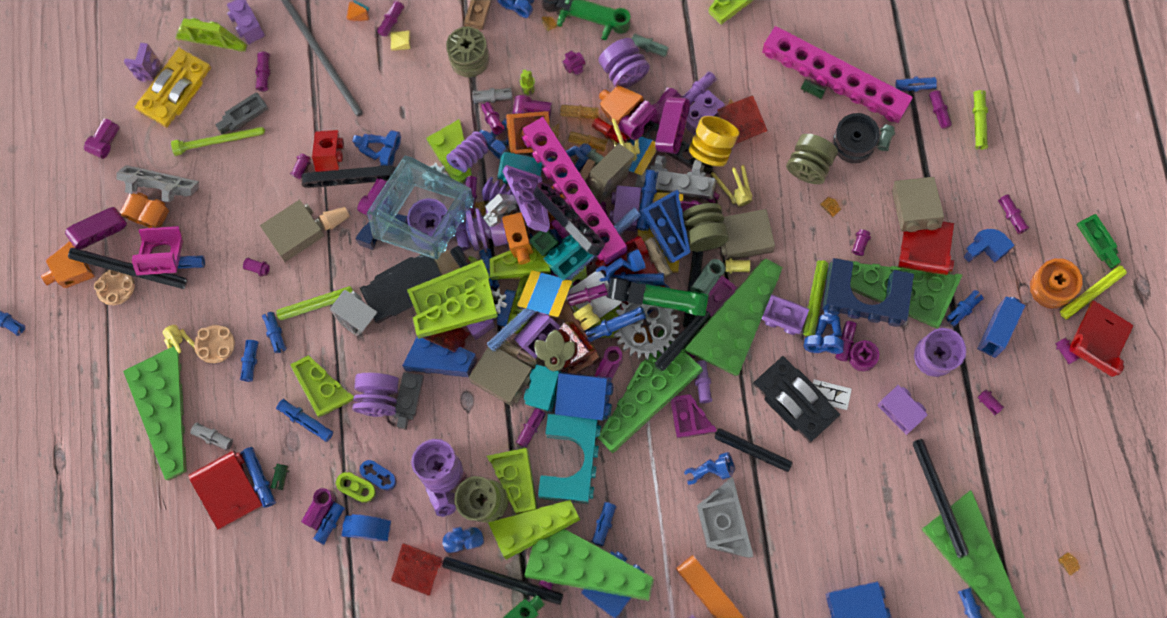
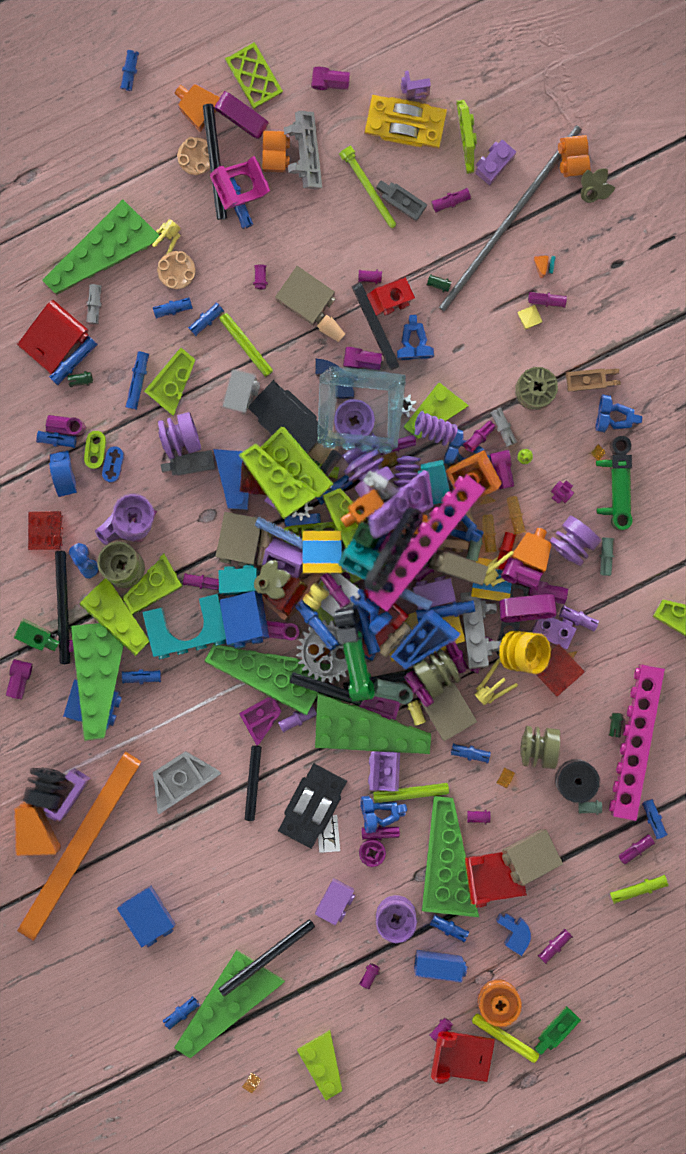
camera: 65 degrees right, 15 degrees up
(55, 197) = (260, 60): none -> lime window
(335, 105) = (439, 283): none -> dark green pin
(715, 251) = (419, 688): none -> magenta axle
(723, 468) = (222, 764): blue piece -> none
(795, 229) = (470, 753): none -> blue pin
(840, 299) = (422, 865): dark blue arch -> none
(1069, 482) = (322, 1064): none -> lime wing

